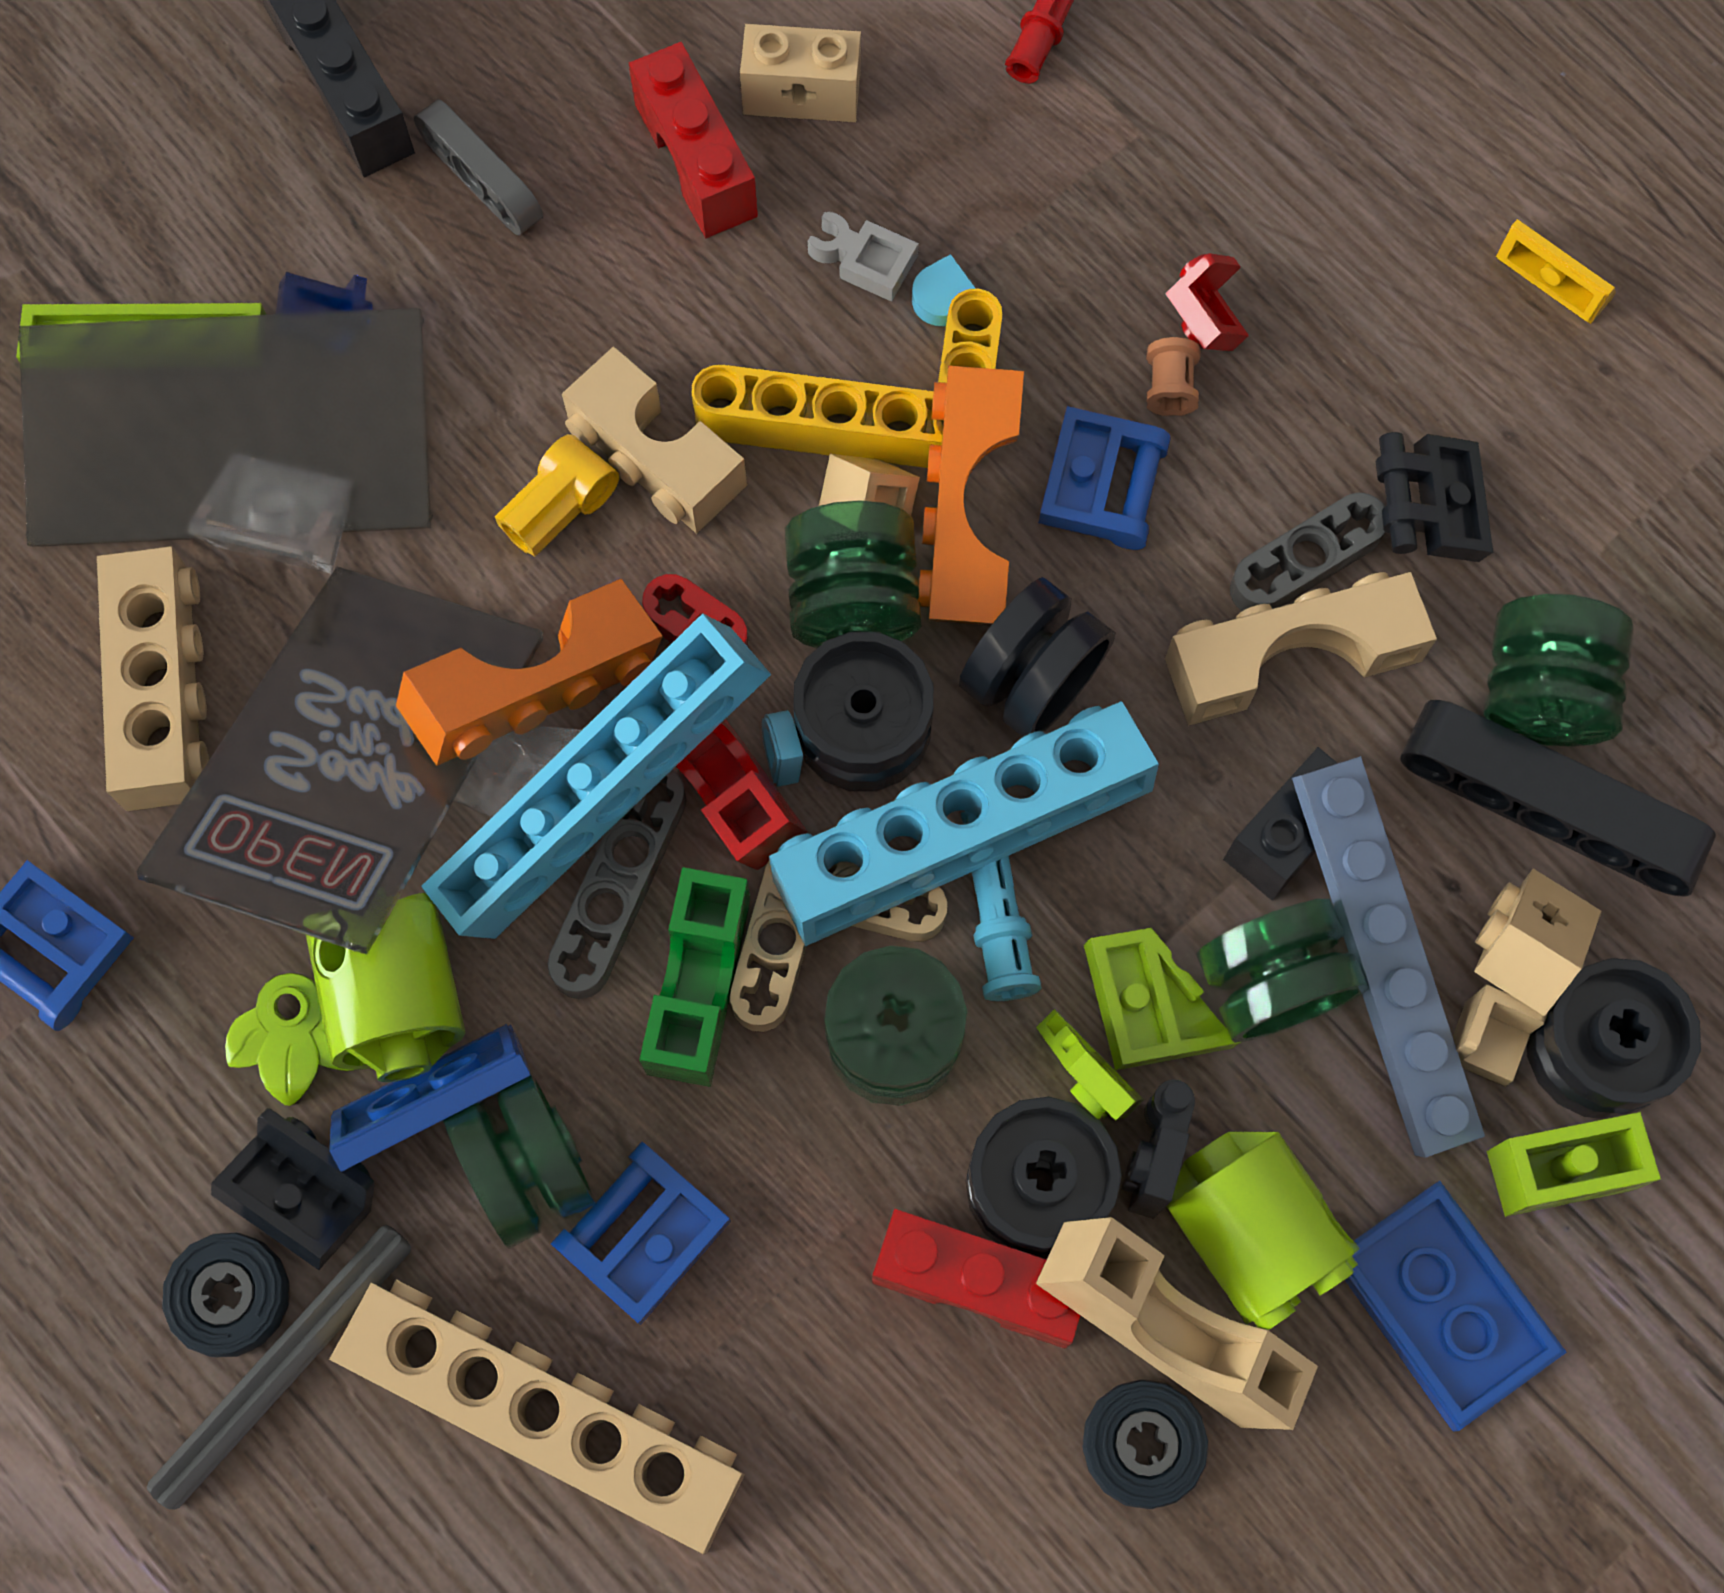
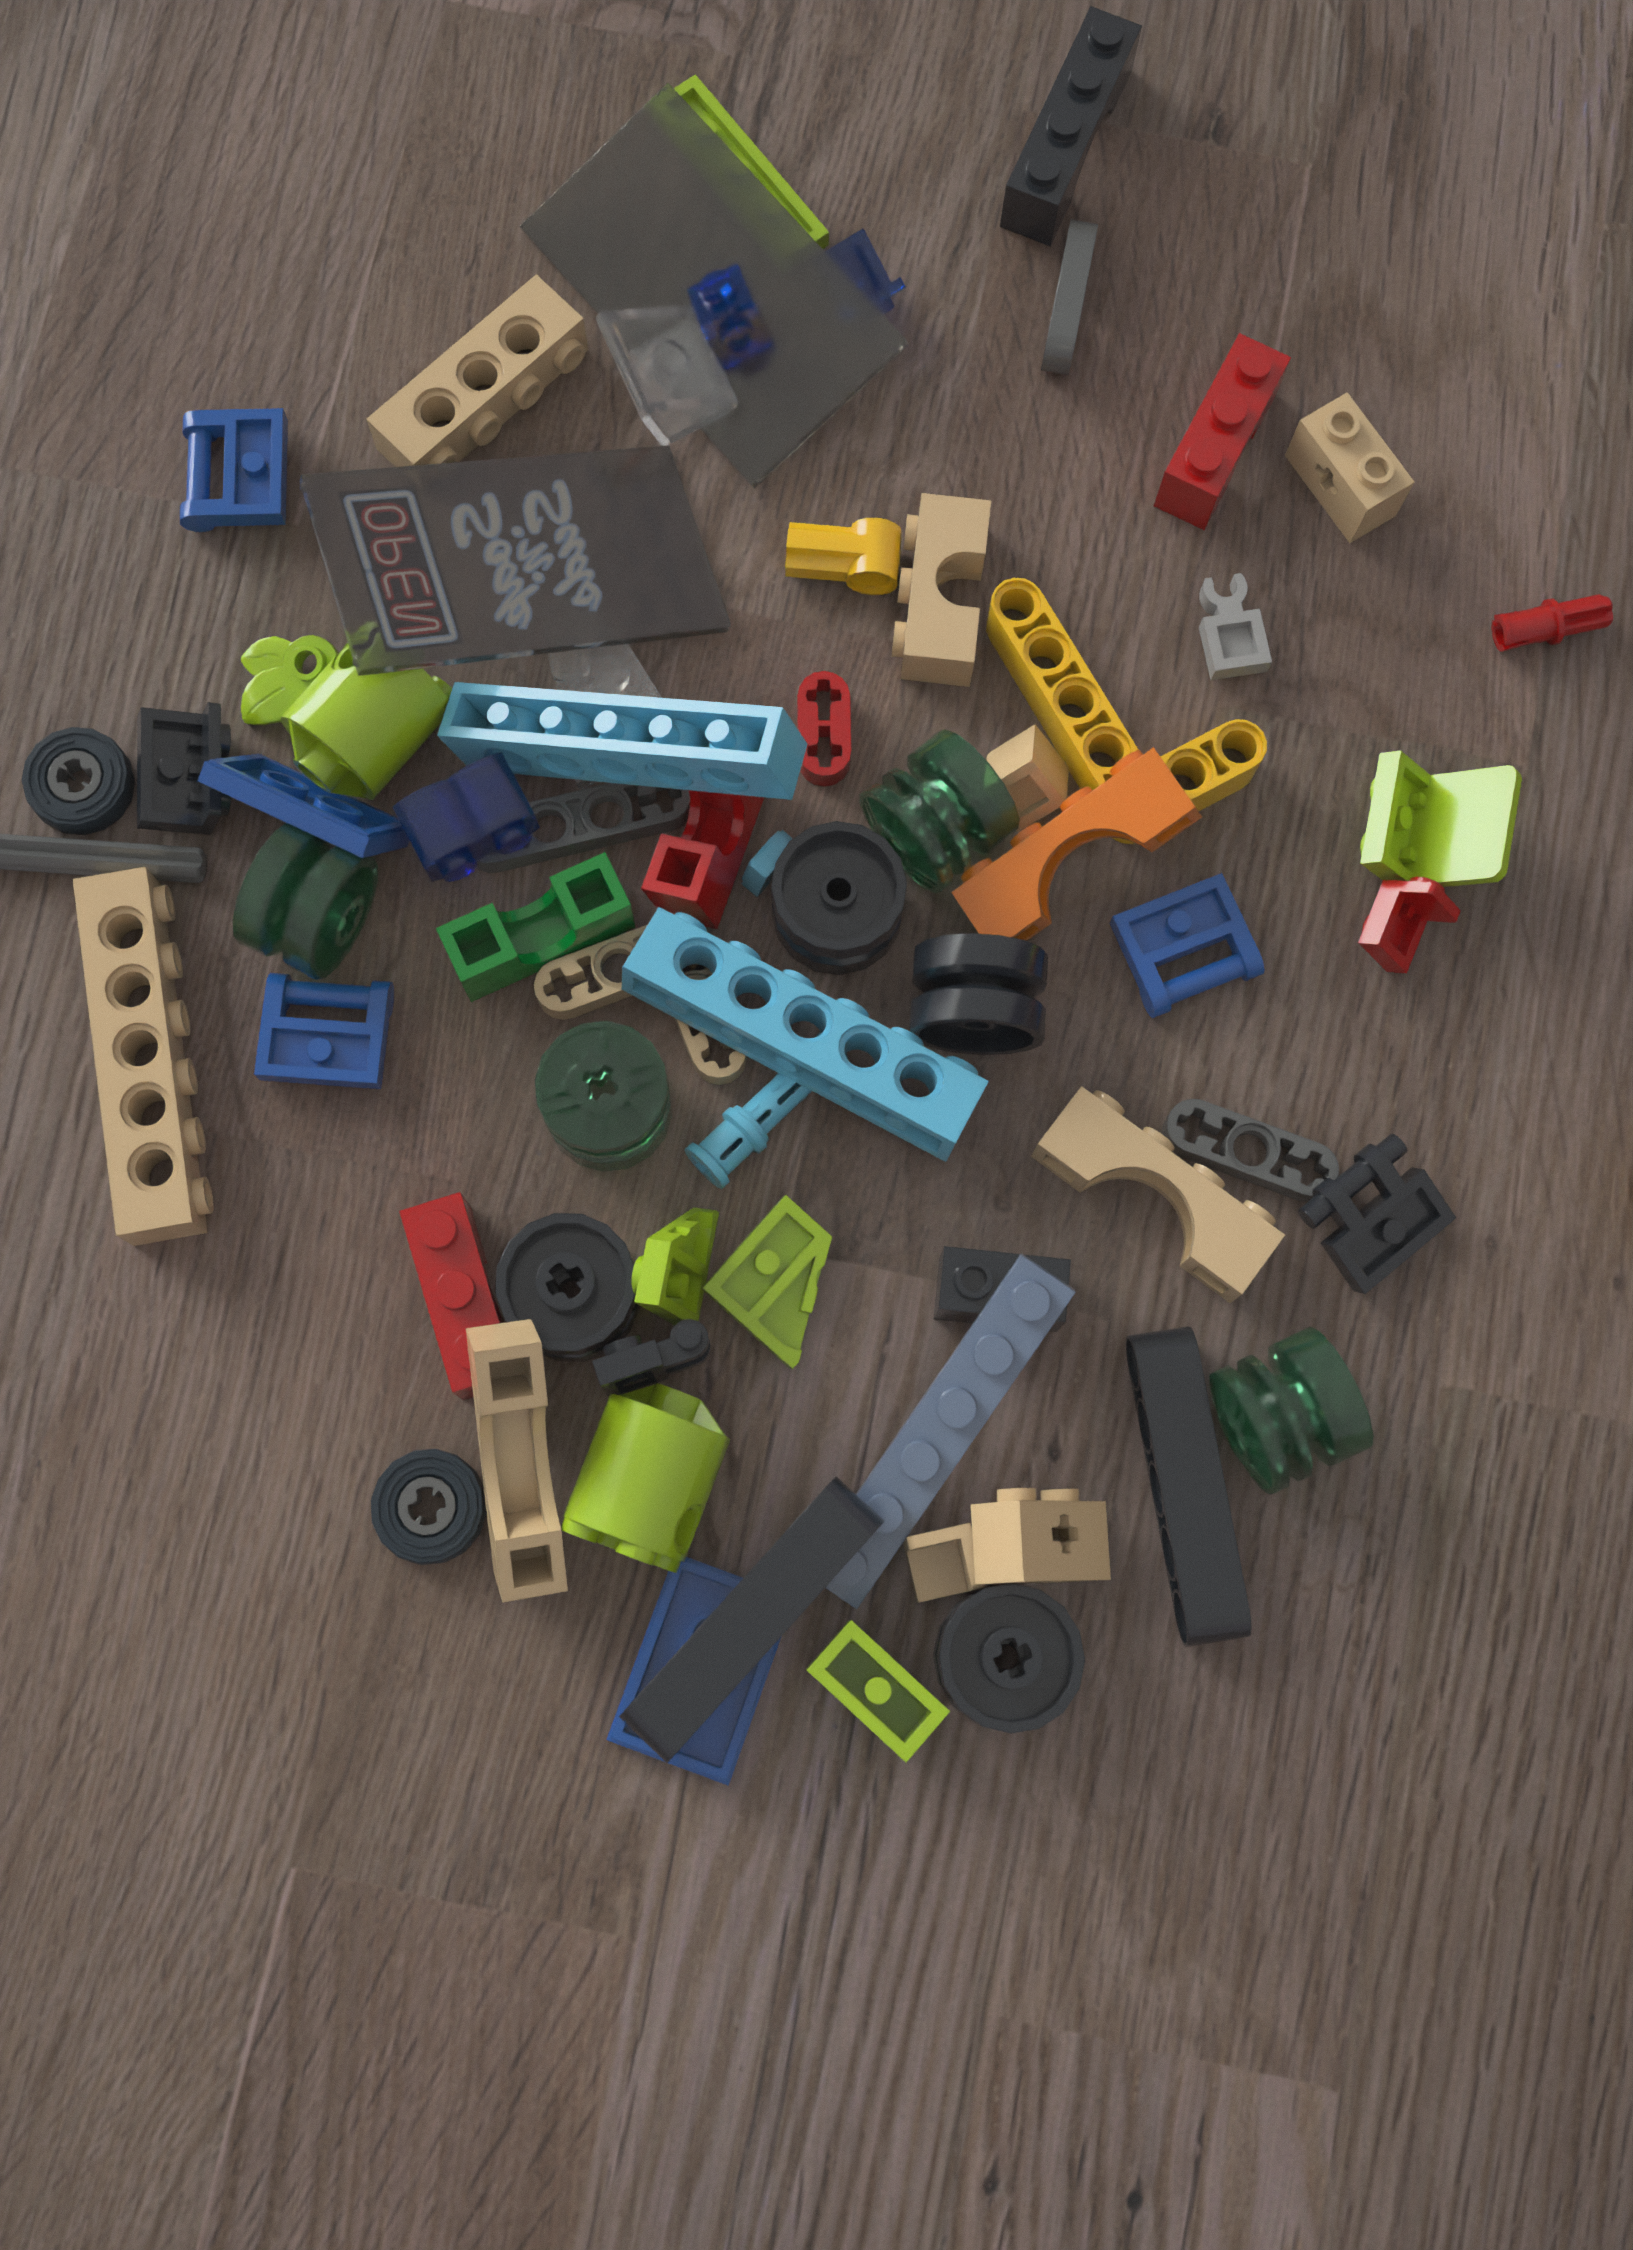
camera: 50 degrees right, 5 degrees up
(273, 428) = (729, 316): none -> clear blue bracket
(465, 704) = (611, 608): orange arch -> none
(552, 965) = (467, 818): none -> clear blue brick
(936, 288) = (1251, 703): medium azure tile -> none
(1154, 217) = (1440, 824): none -> lime bracket
(1173, 376) = (1318, 937): nougat bush -> none
(1281, 970) = (866, 1349): clear green wheel -> none
(1449, 1226) = (751, 1619): none -> black beam

